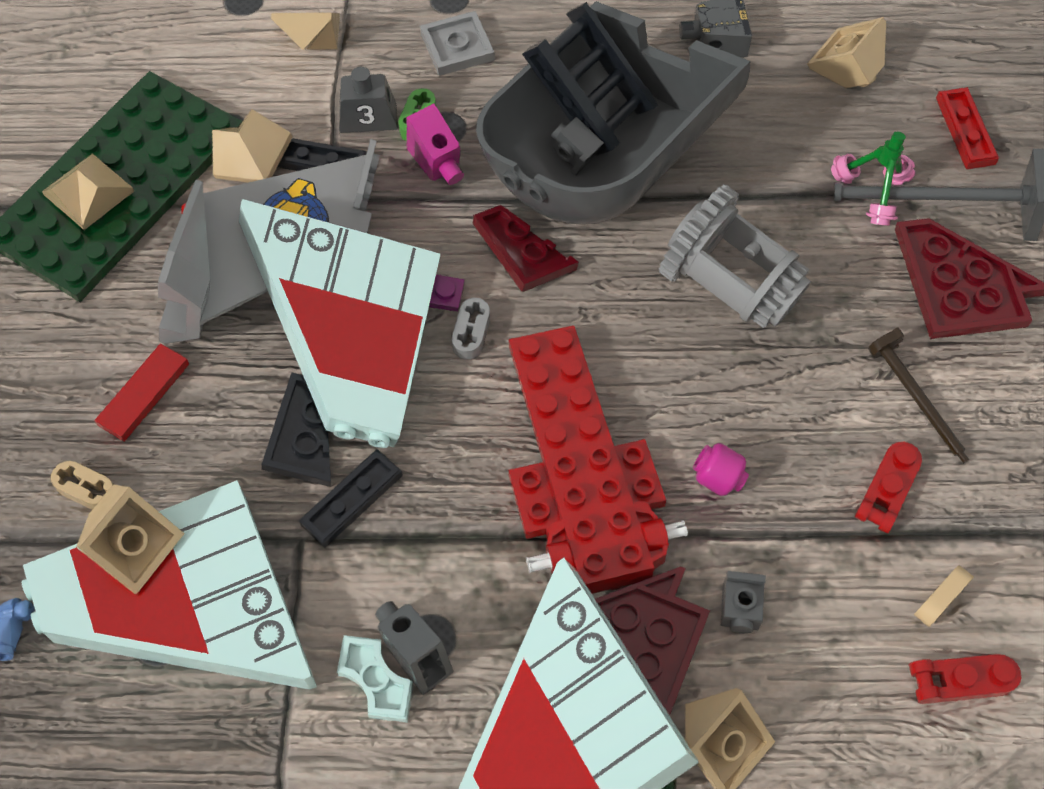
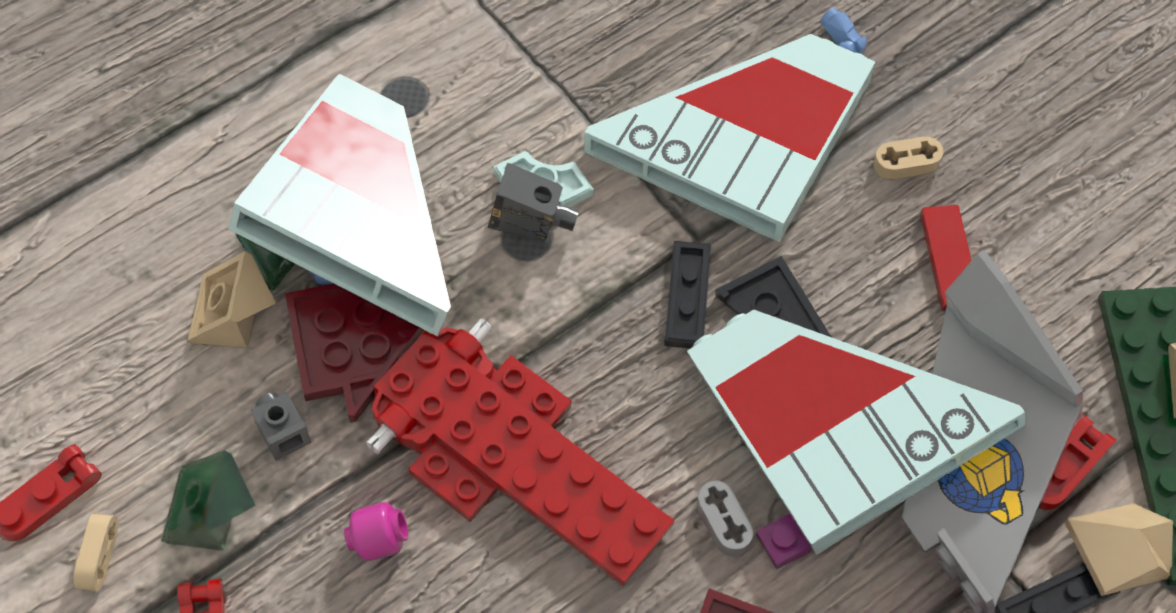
camera: 140 degrees right, 0 degrees up
(127, 537) = (815, 115): tan slope -> none
(841, 572) = (205, 502): none -> clear green slope

